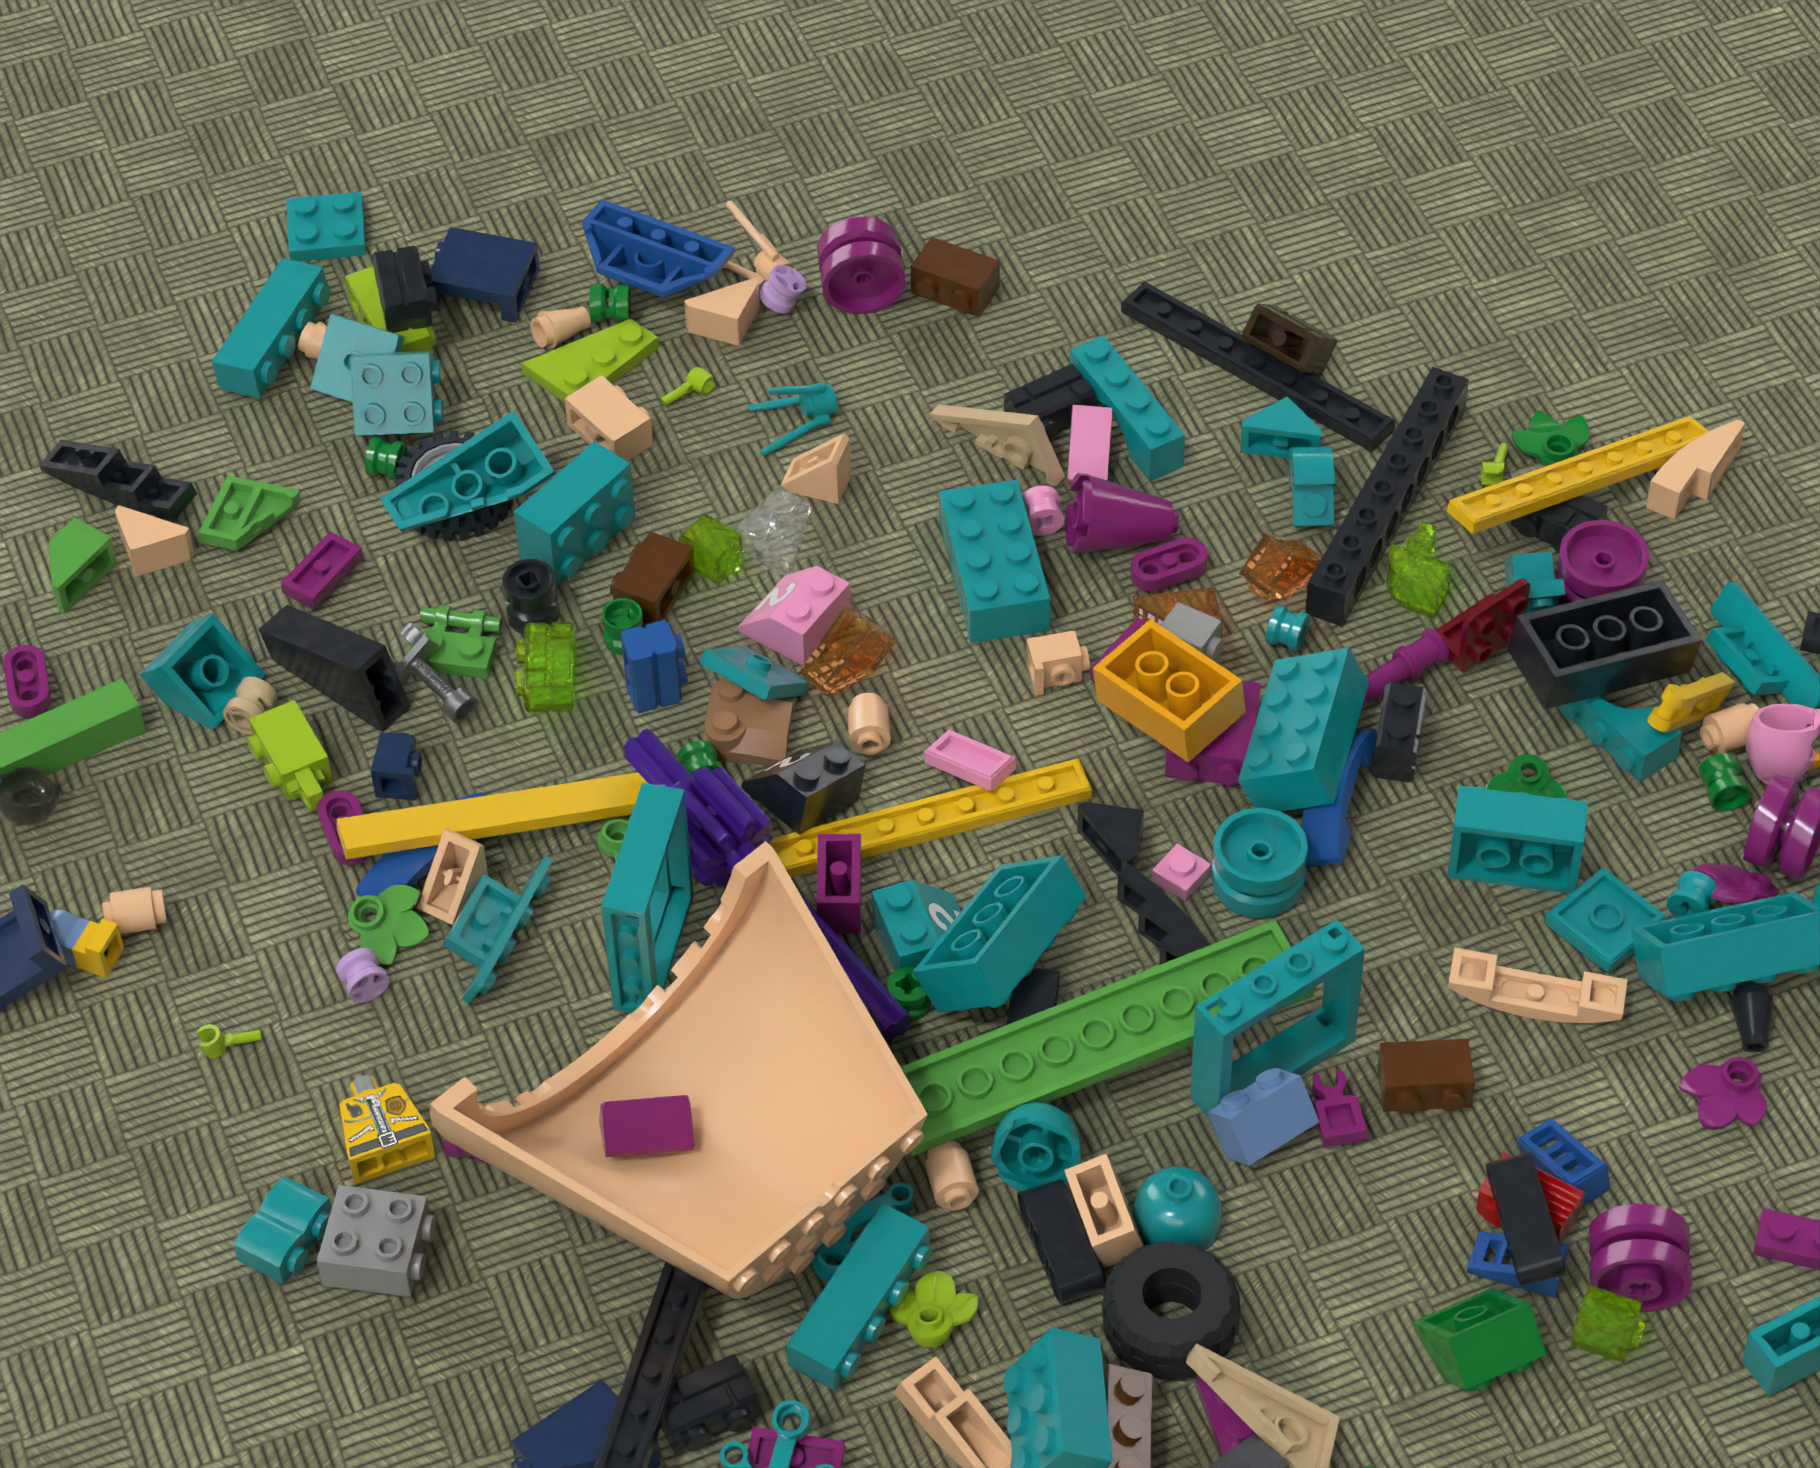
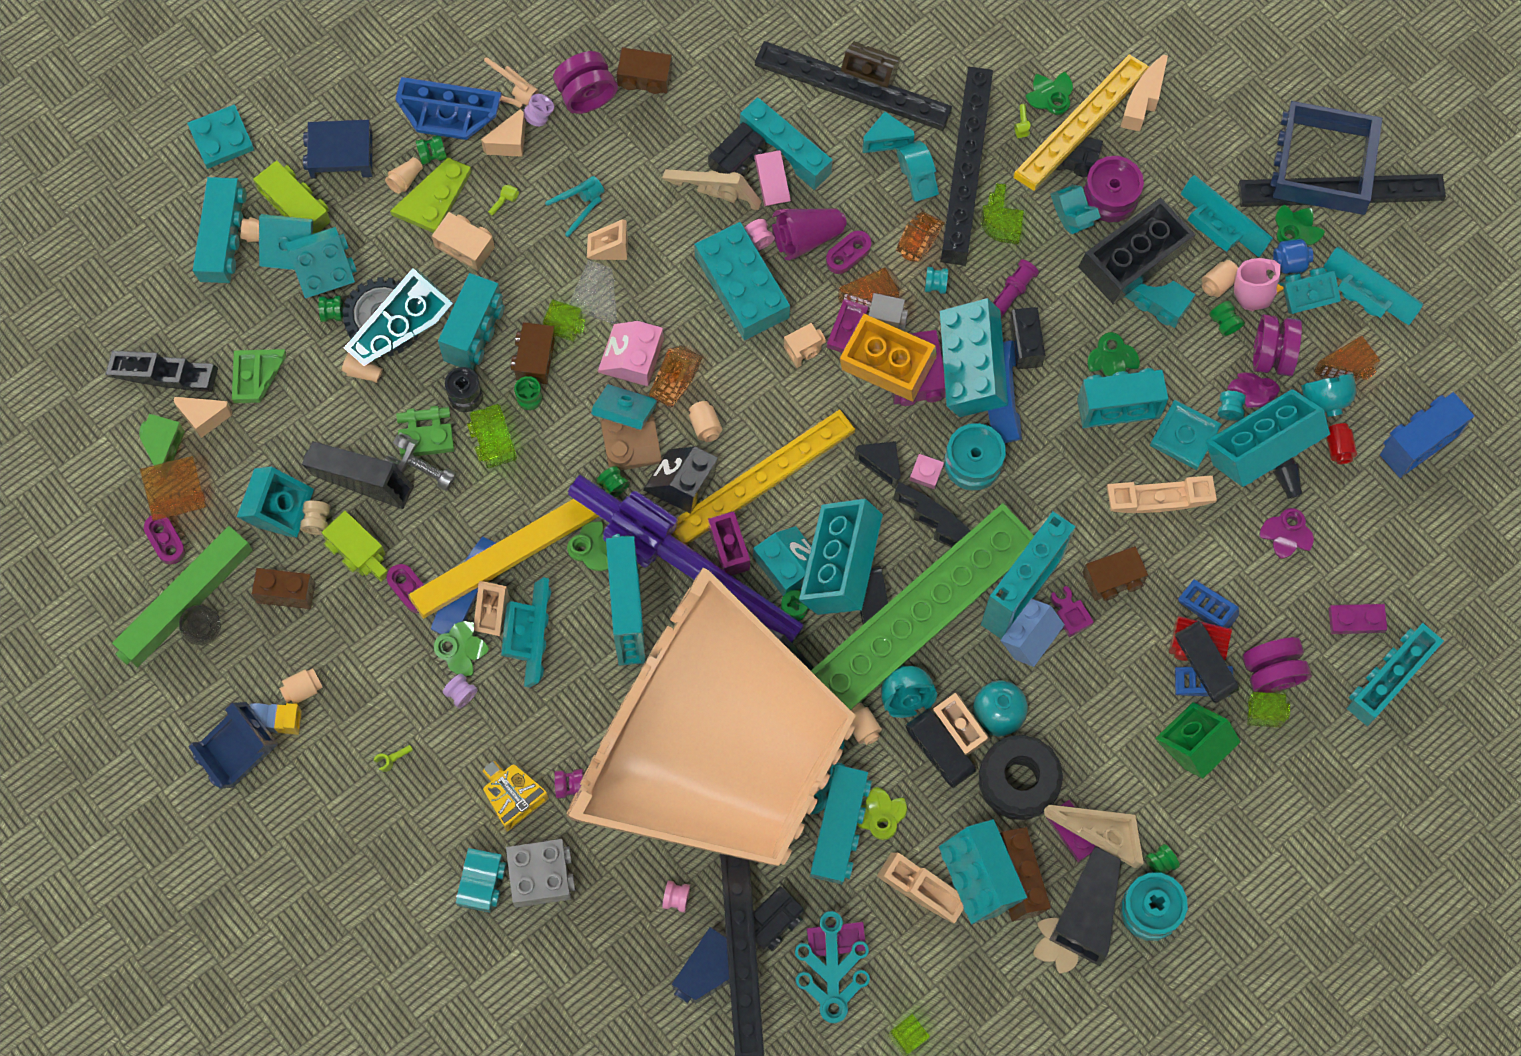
camera: 20 degrees left, 20 degrees up
(66, 616) = (173, 488): none -> clear orange hinge
(165, 780) = (283, 588): none -> reddish brown brick
(322, 570) = (321, 403): magenta plate -> none
(396, 766) = (424, 534): dark blue brick -> none
(402, 545) = (357, 370): none -> light nougat cone
(403, 289) = (298, 183): black brick -> none
(570, 1331) = (676, 896): none -> bright pink wheel
(646, 1126) = (675, 751): magenta slope -> none
(653, 666) = (561, 421): blue brick -> none
(970, 760) = (775, 430): bright pink tile -> none
(1484, 626) = (1053, 248): dark red bracket -> none
(1690, 702) = (1194, 272): yellow plate -> none

